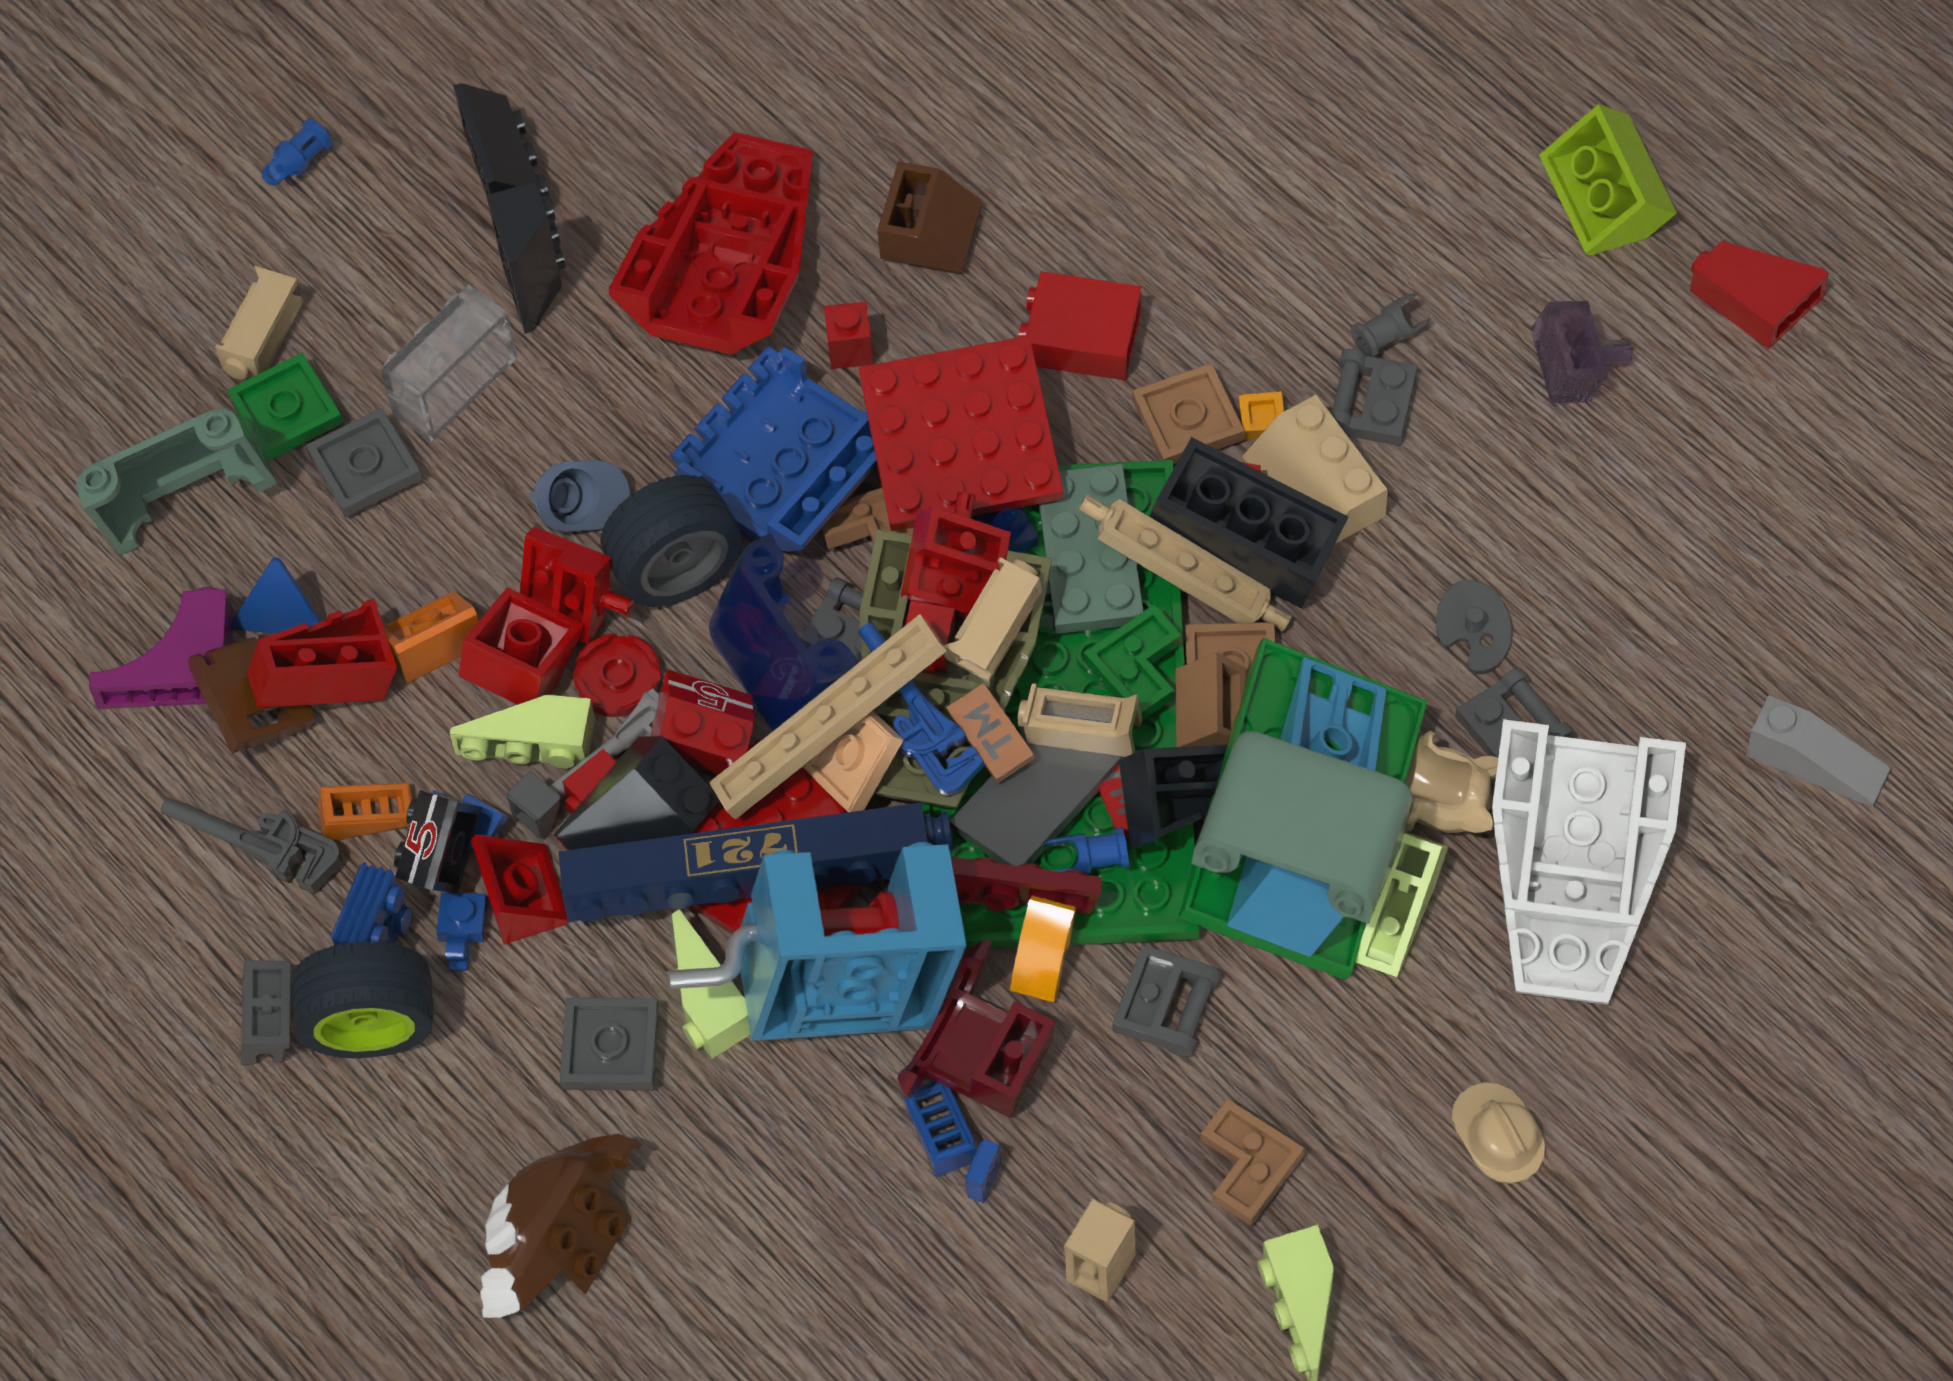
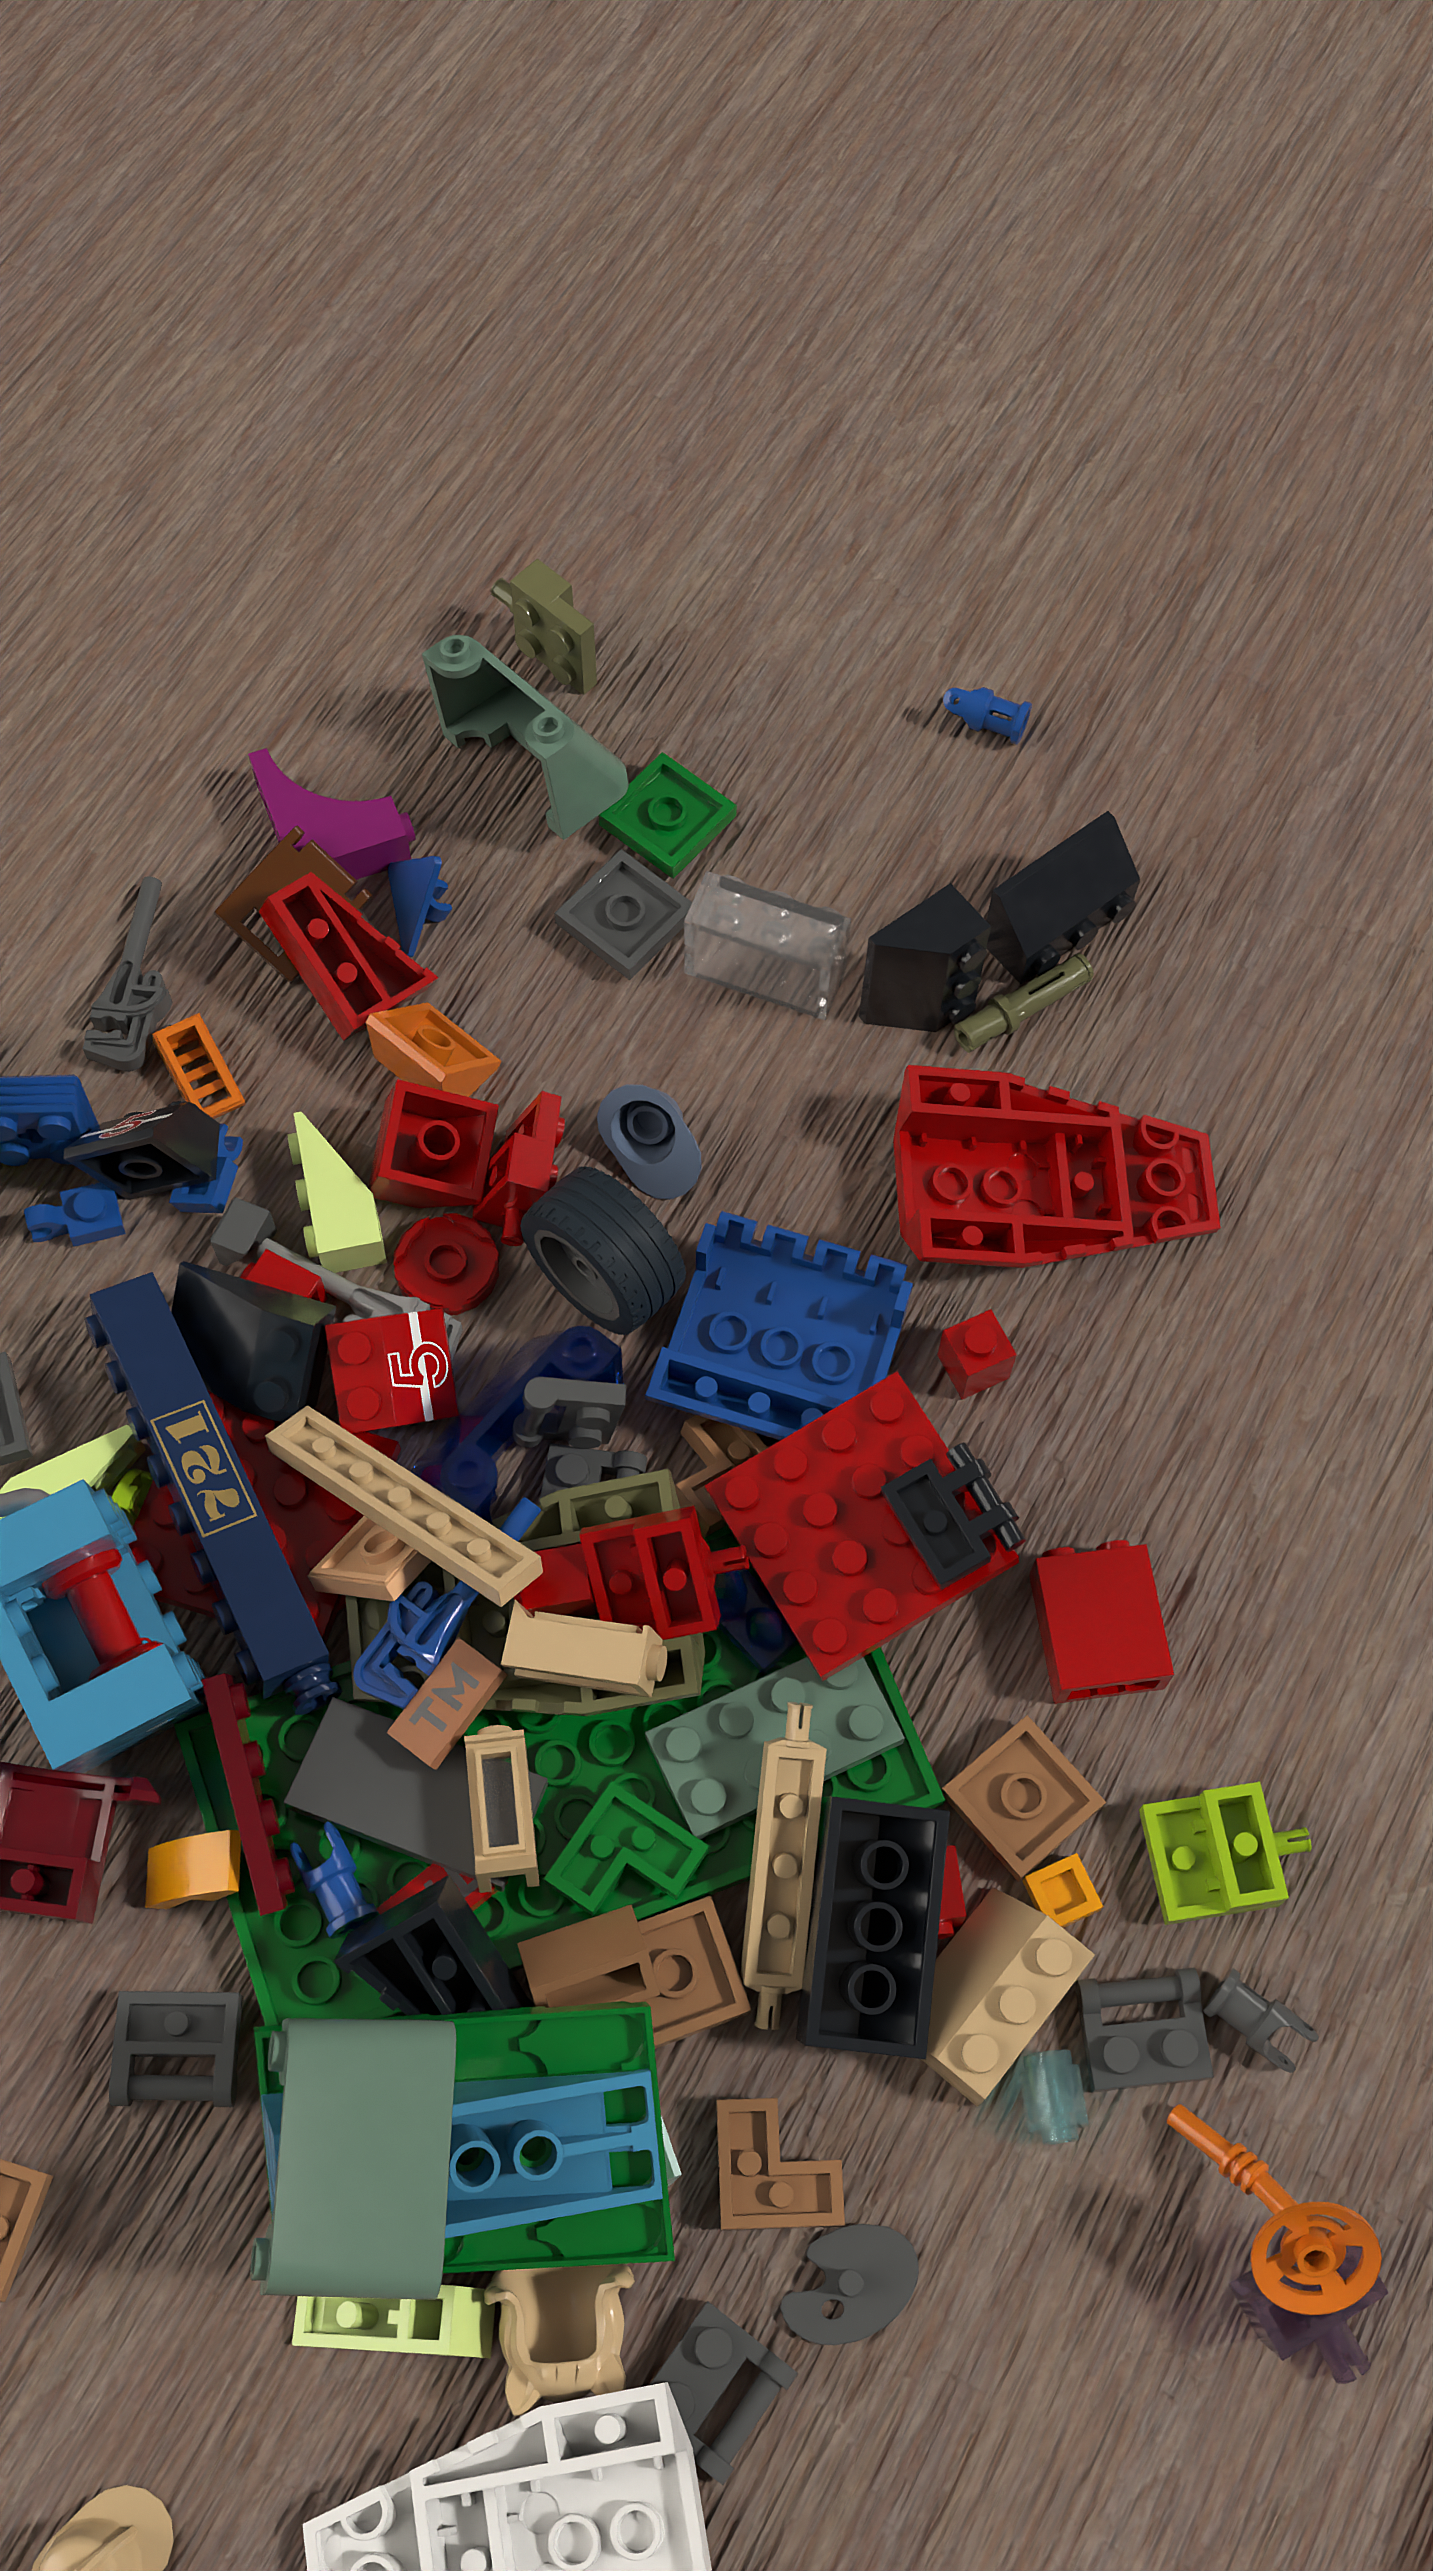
camera: 65 degrees right, 5 degrees up
(70, 430) = (550, 625): none -> olive plate
(259, 325) = (756, 755): tan window -> none
(520, 886) = (132, 1240): red slope -> none
(571, 227) = (1007, 1011): none -> olive pin
(719, 934) = (132, 1492): none -> lime tile
(795, 588) = (585, 1415): none -> dark grey plate
(927, 219) = (1173, 1388): reddish brown slope -> none
(987, 369) = (938, 1525): none -> black plate
(1271, 310) = (1217, 1853): none -> lime plate
(1391, 656) = (760, 2189): none -> medium nougat plate
(1398, 460) = (1053, 2096): none -> clear light blue brick
(1539, 326) = (1307, 2237): none -> orange dish

